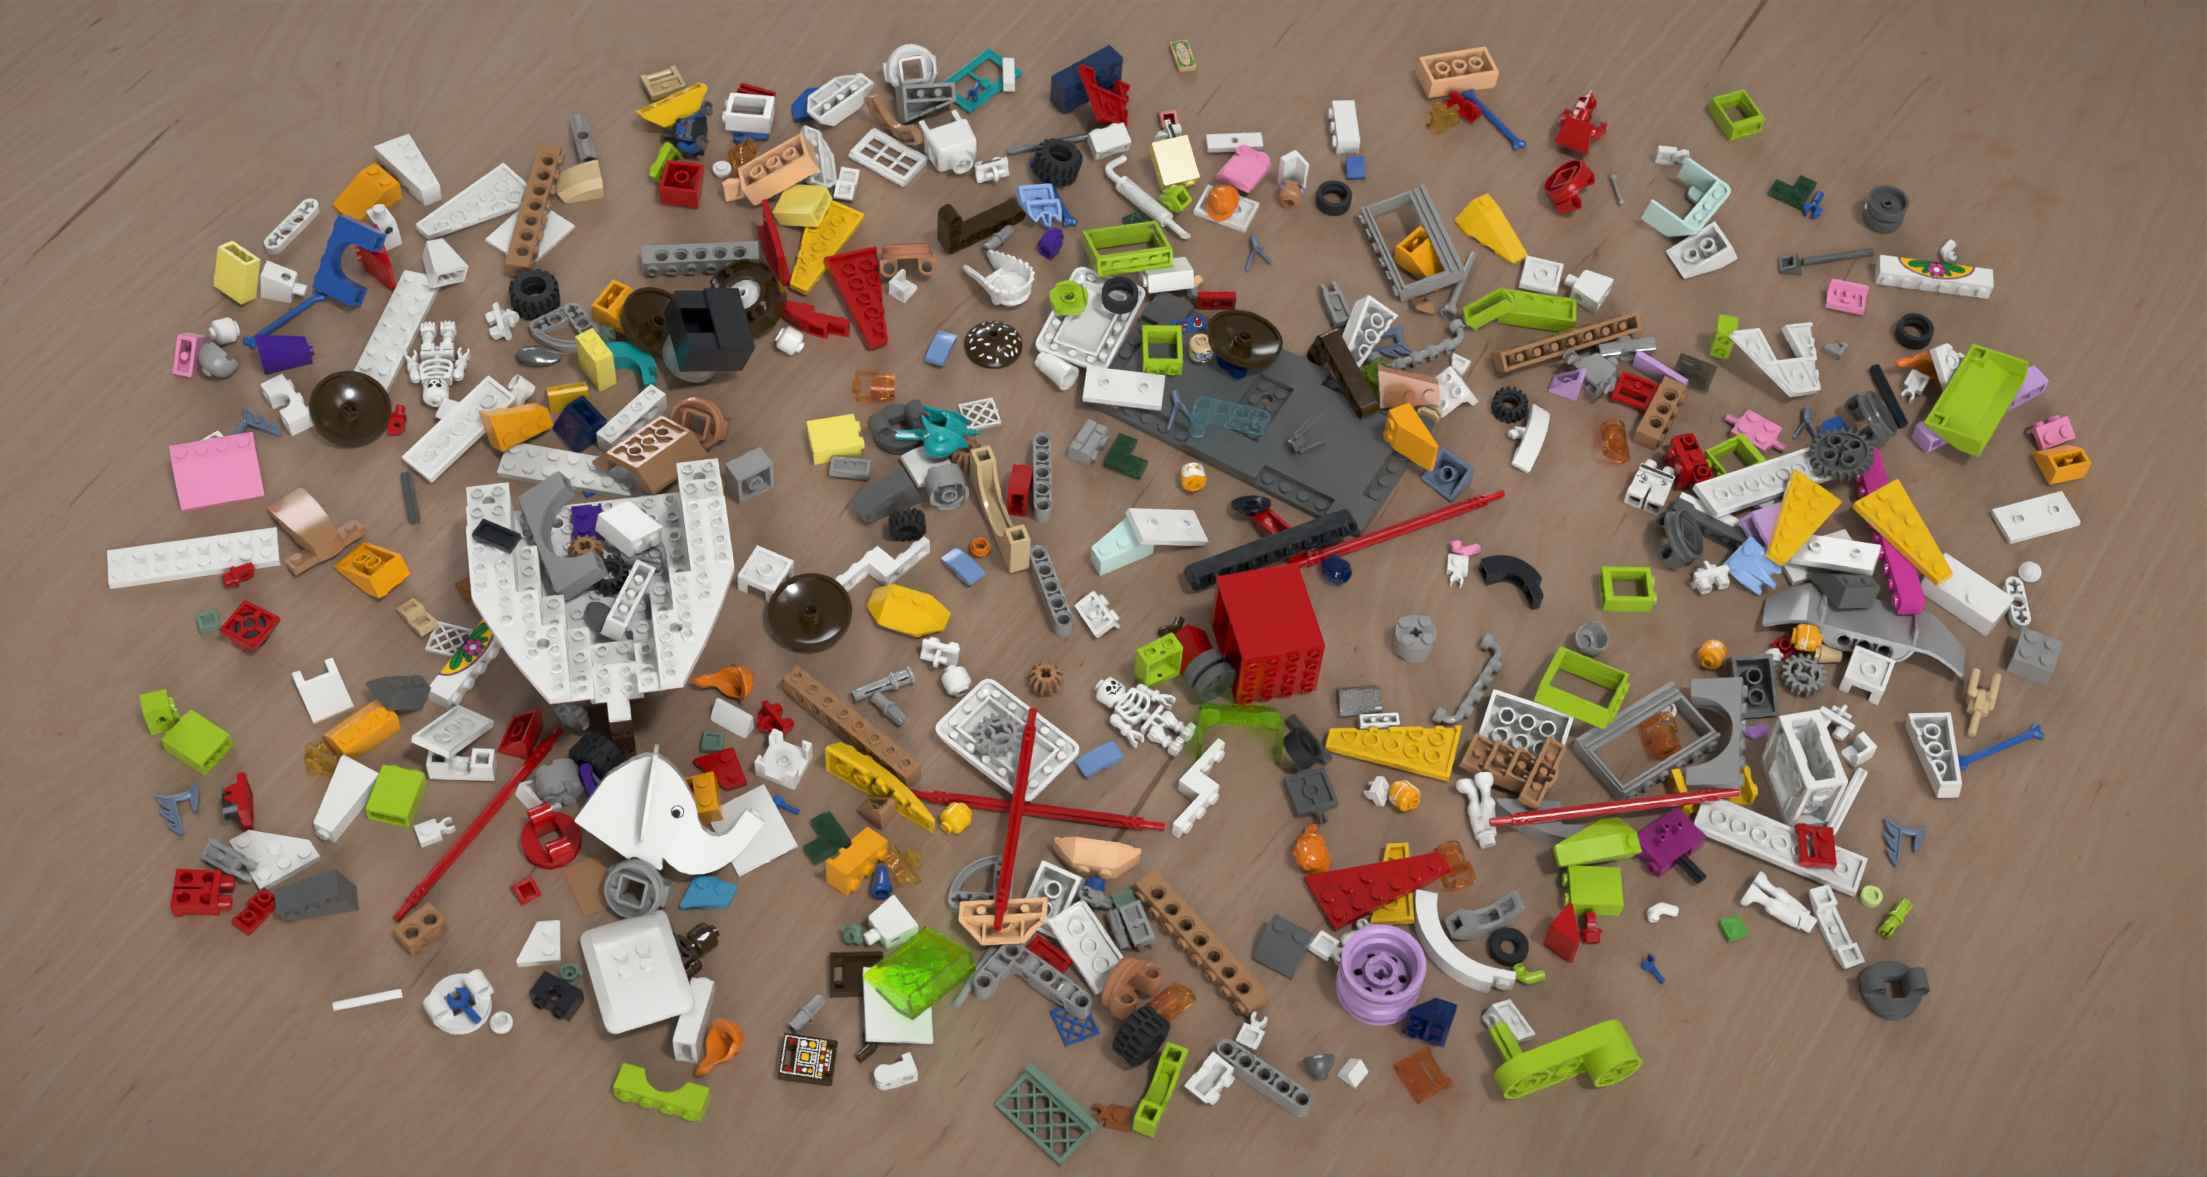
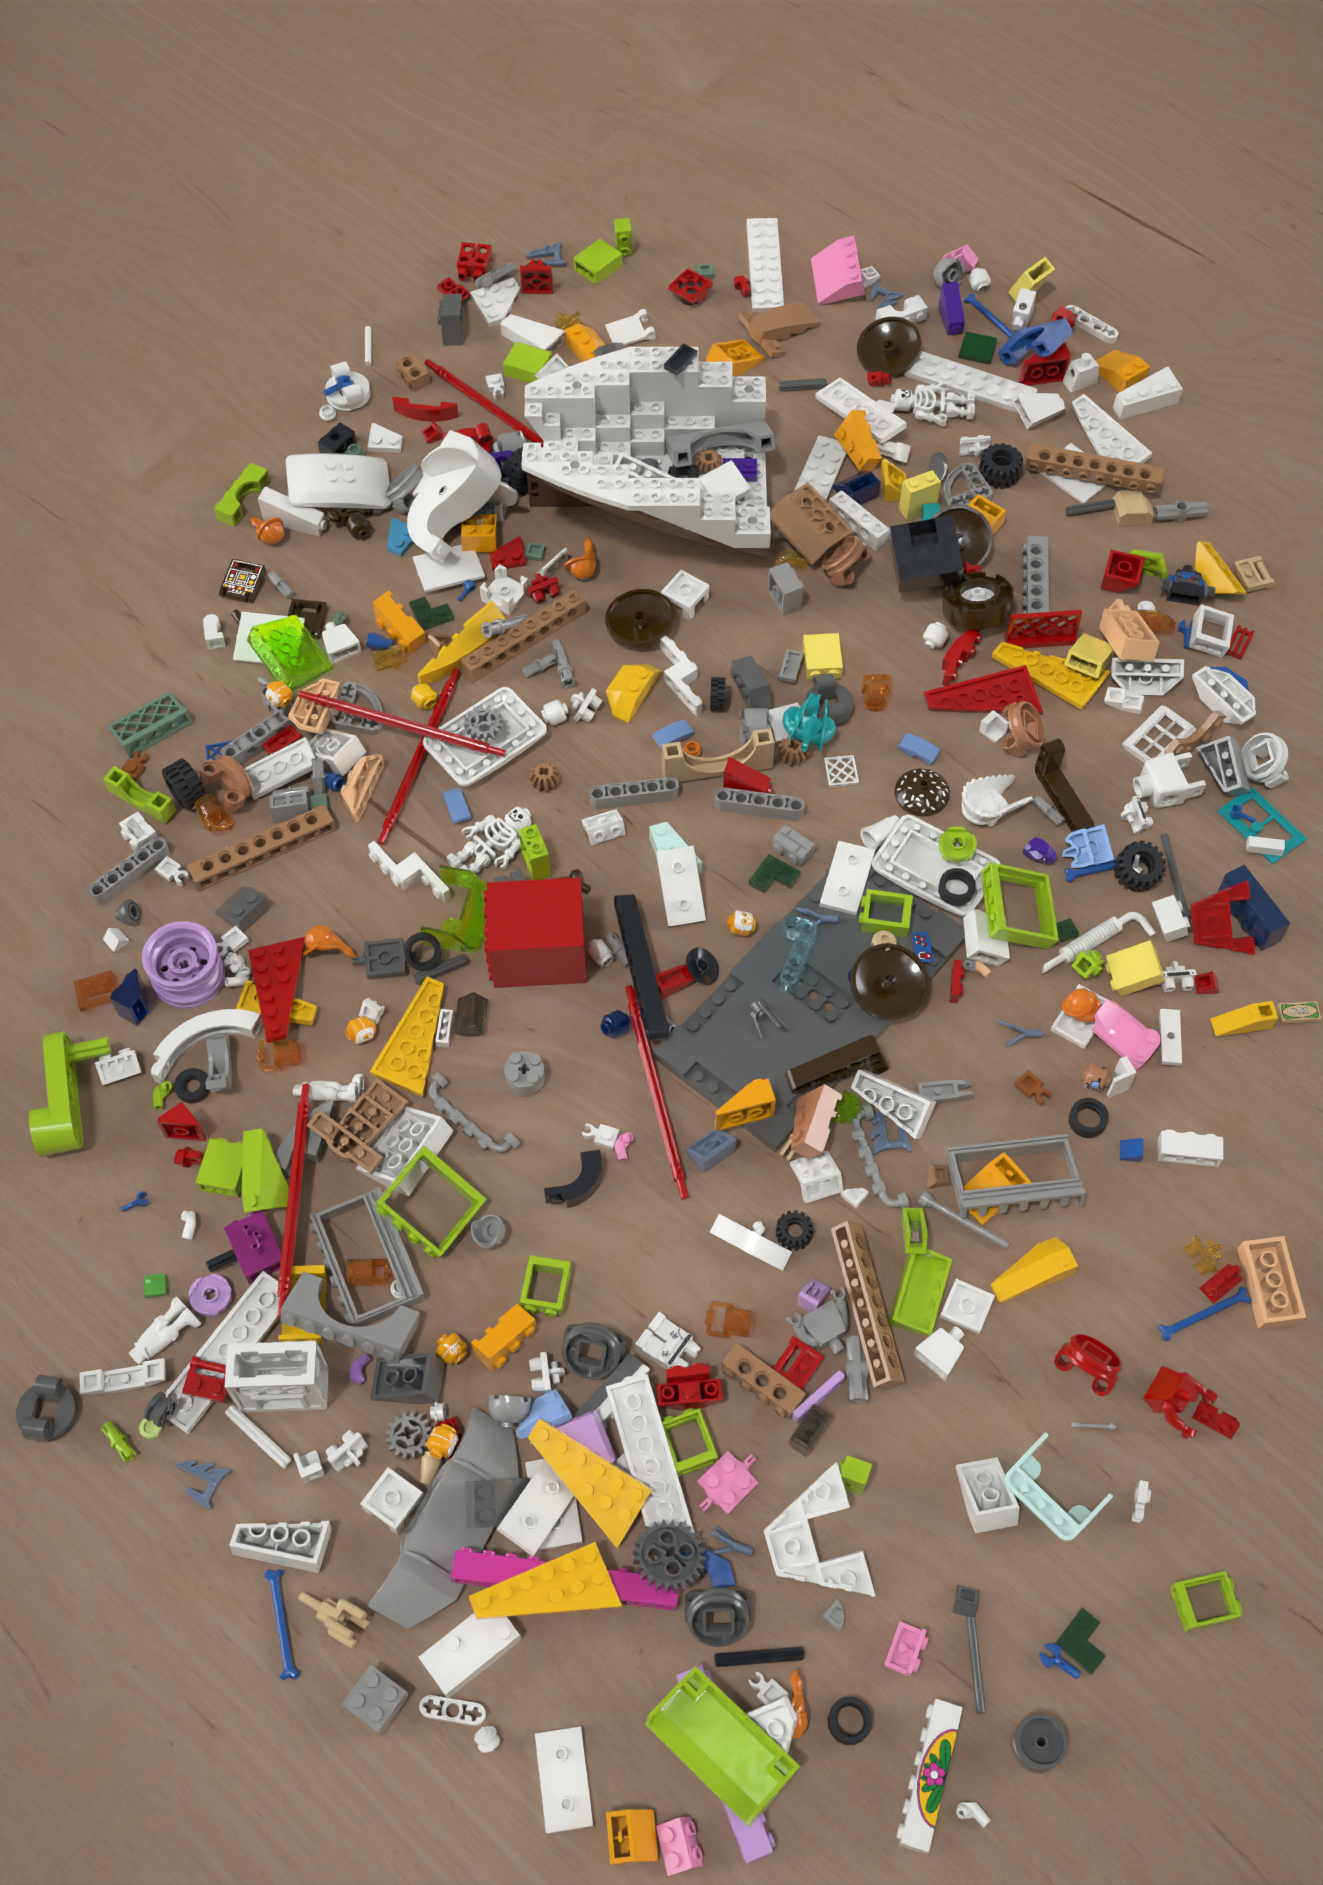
camera: 105 degrees right, 5 degrees up
(293, 246) = (1062, 313): none -> red brick
(336, 330) = (977, 347): none -> dark green tile
(488, 924) = (428, 413): none -> red slope
(583, 219) = (1090, 507): none -> dark grey axle
(855, 741) = (500, 626): none -> light grey pin
(996, 956) = (279, 694): none -> light orange head
(1204, 86) = (1245, 1019): none -> yellow slope
(1314, 240) = (1031, 1085): none -> dark orange plate
(1689, 612) = (504, 1337): none -> light orange wedge
(1723, 883) = (214, 1306): none -> lavender plate
(1752, 596) = (509, 1409): none -> light grey cylinder
(1863, 874) = (160, 1409): none -> dark grey wheel

